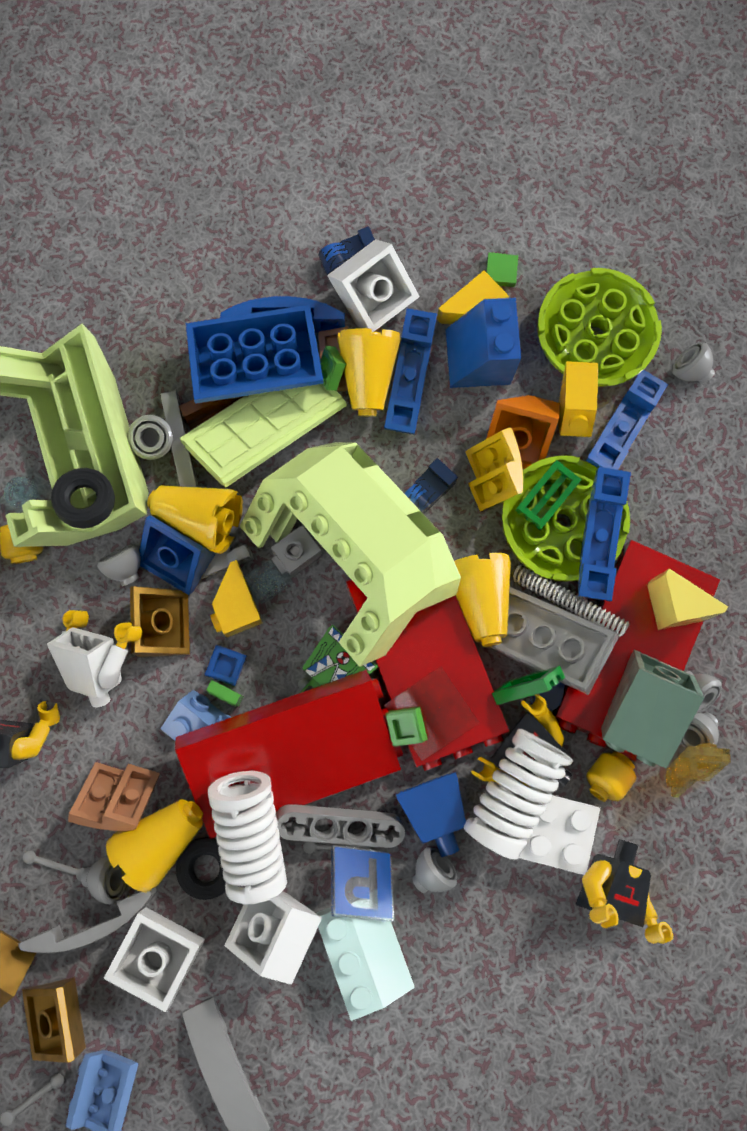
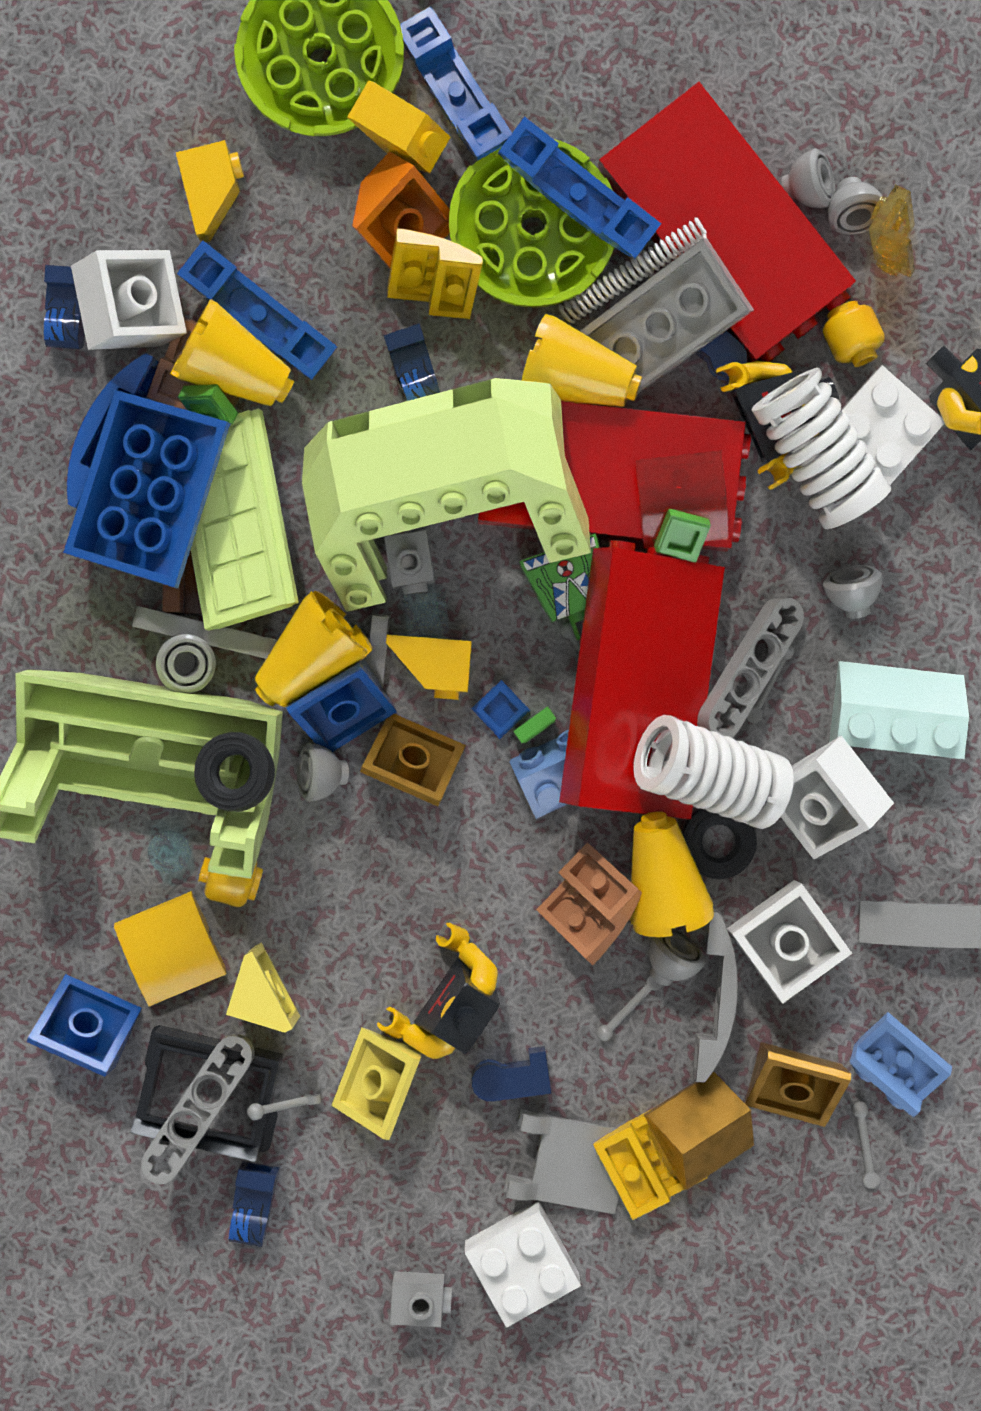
camera: 60 degrees left, 10 degrees up
(90, 660) = (420, 859): white torso -> none
(361, 883) = (825, 675): piece -> none
(435, 811) = (788, 553): blue torso -> none
(484, 345) = (273, 204): blue slope -> none
(502, 268) = (179, 127): bright green tile -> none
(528, 685) = (707, 372): green tile -> none
(531, 516) = (511, 262): green tile -> none
(651, 710) = (806, 246): sand green slope -> none
(680, 601) = (704, 147): light yellow slope -> none

